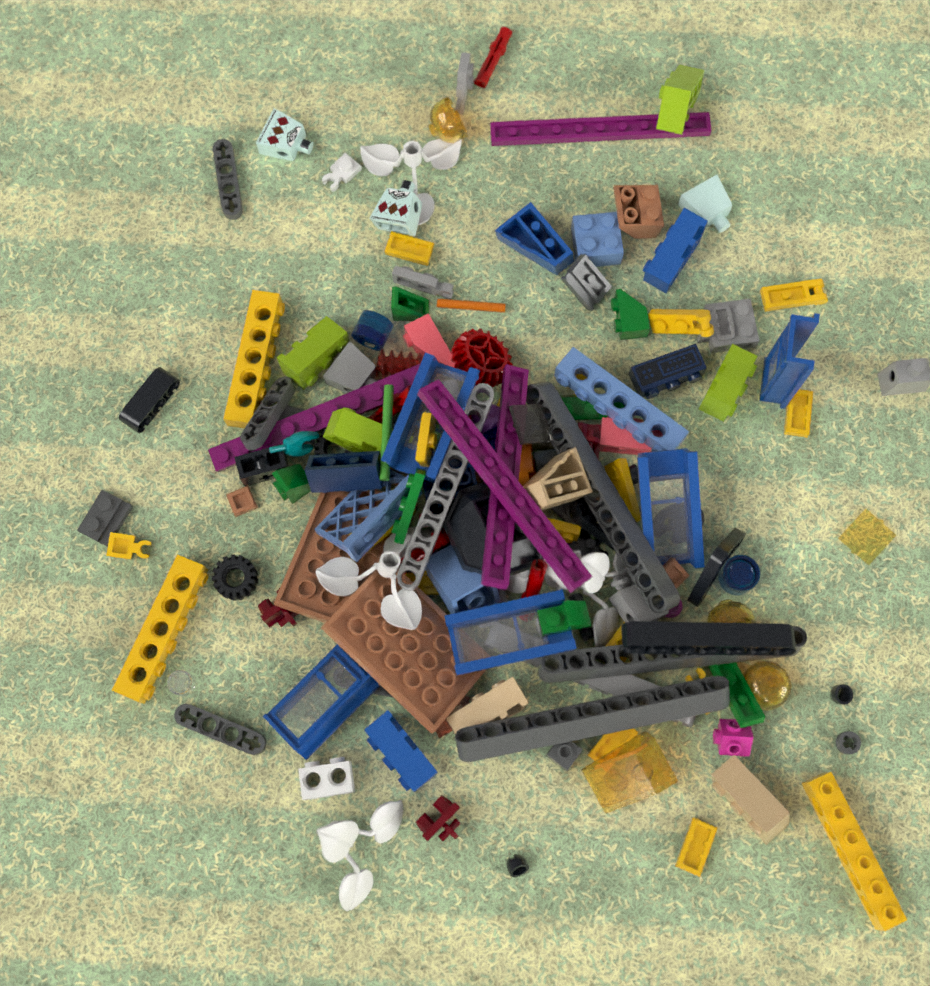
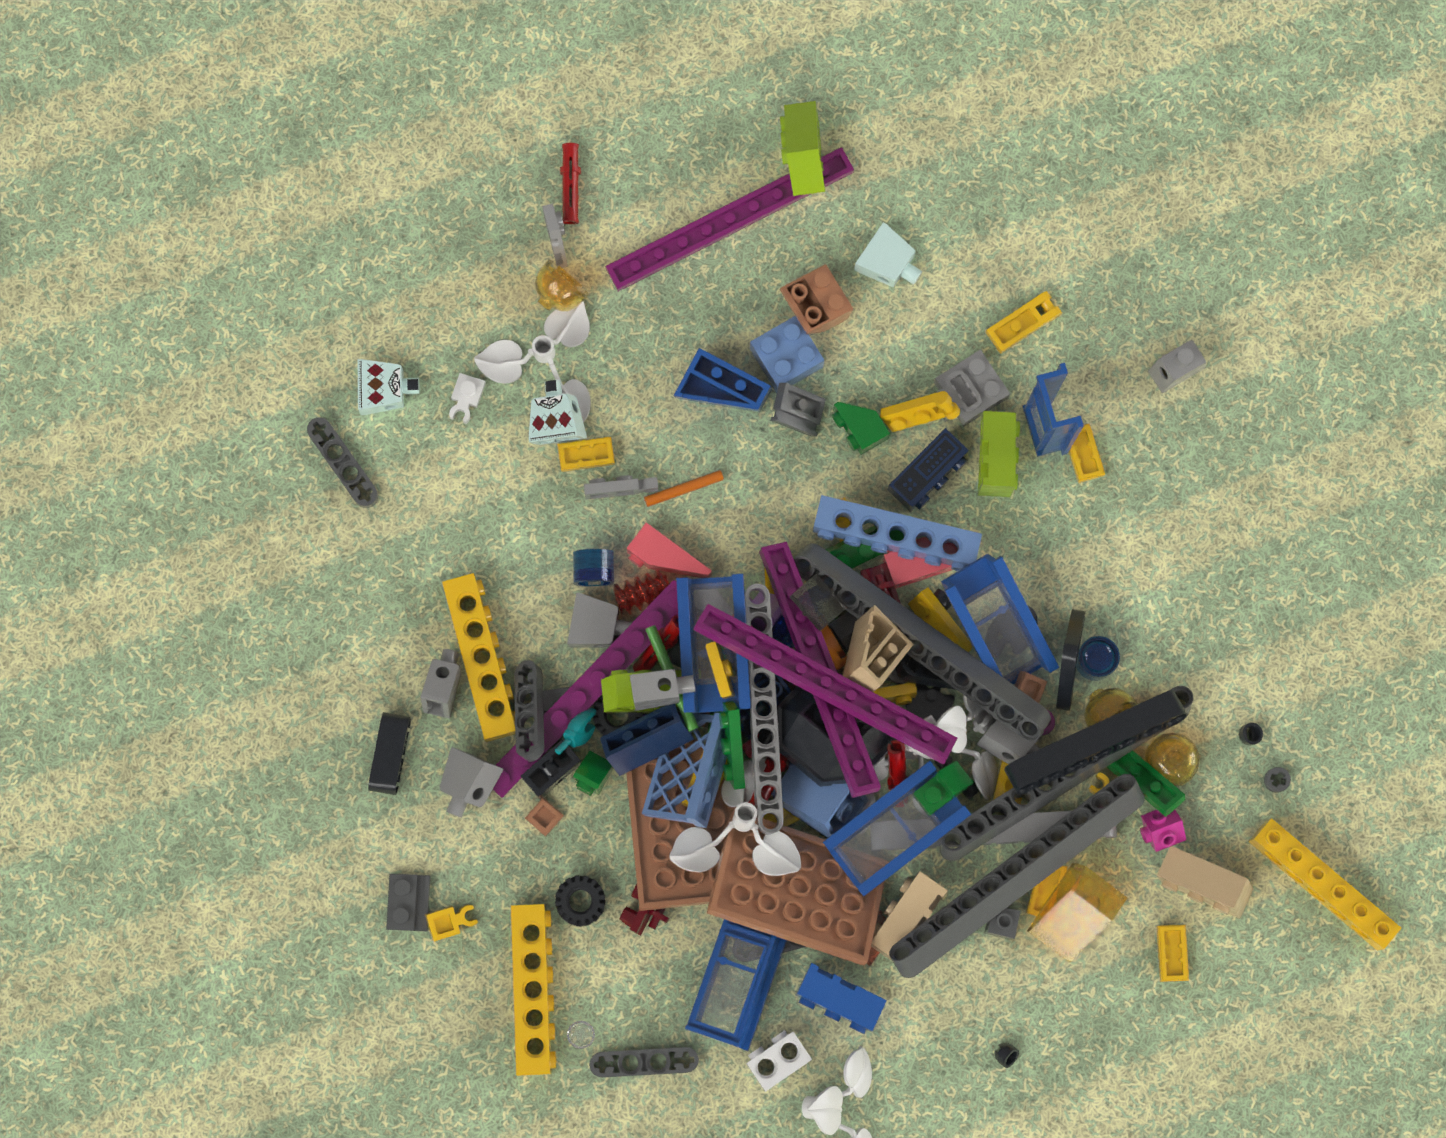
camera: 30 degrees left, 5 degrees up
(194, 445) = (467, 780): none -> light grey torso
(212, 365) = (441, 685): none -> light grey torso
(314, 352) = (544, 620): lime wedge -> none
(367, 430) = (647, 692): none -> light grey torso
(407, 305) = (619, 521): green slope -> none
(430, 827) = (913, 1033): dark red hips -> none
(483, 353) = (730, 541): red gear -> none
(675, 250) = (876, 332): blue wedge -> none
(867, 536) = (1209, 555): clear yellow piece -> none

